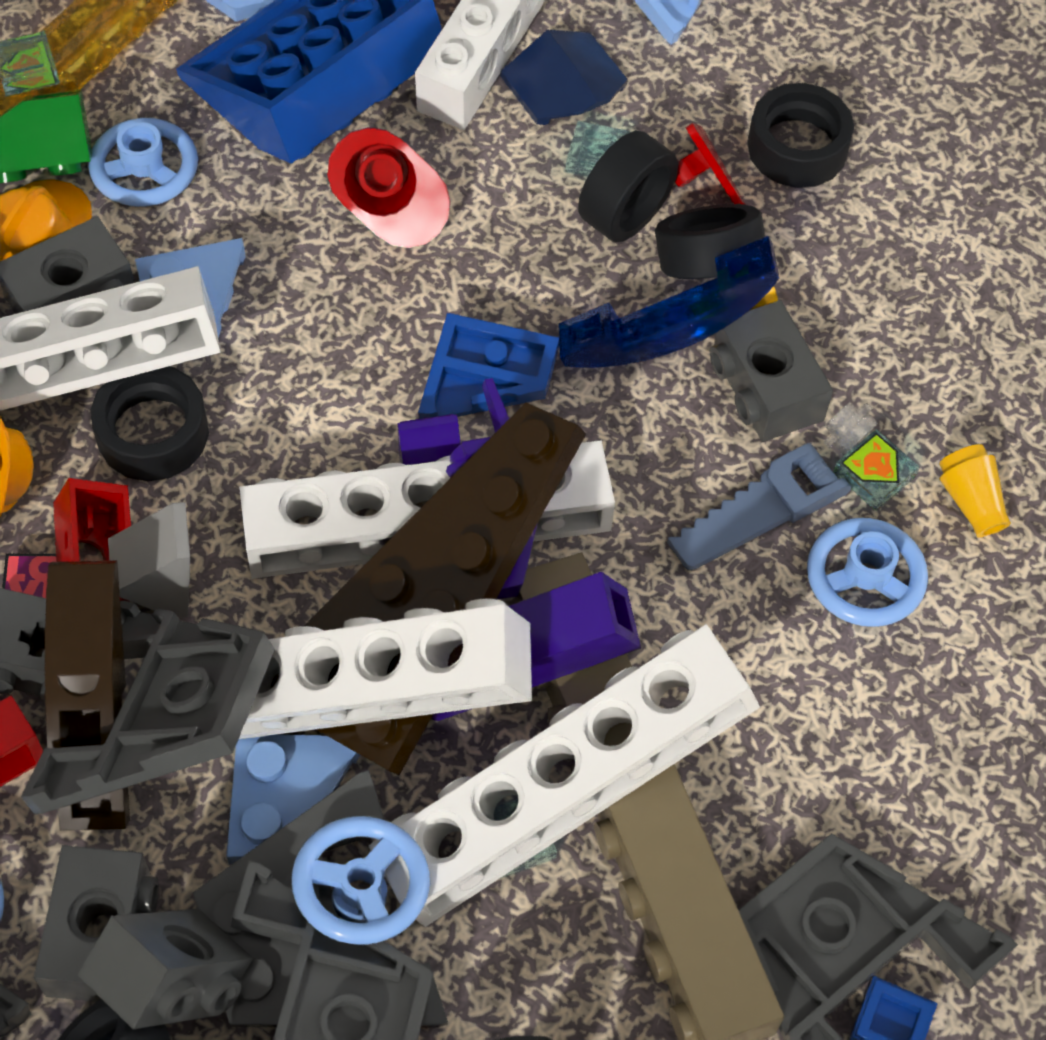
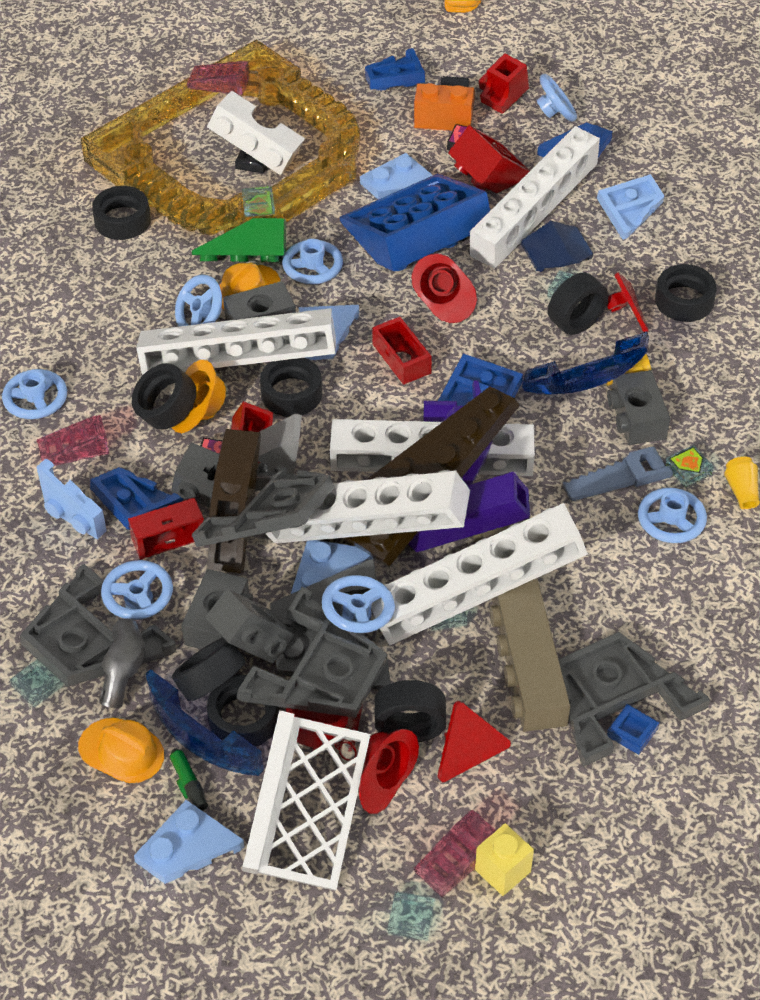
camera: 15 degrees right, 10 degrees down
(323, 293) = (397, 337): none -> red piece
(697, 236) = (603, 335): black tyre -> none
(849, 427) = (678, 440): clear plate -> none

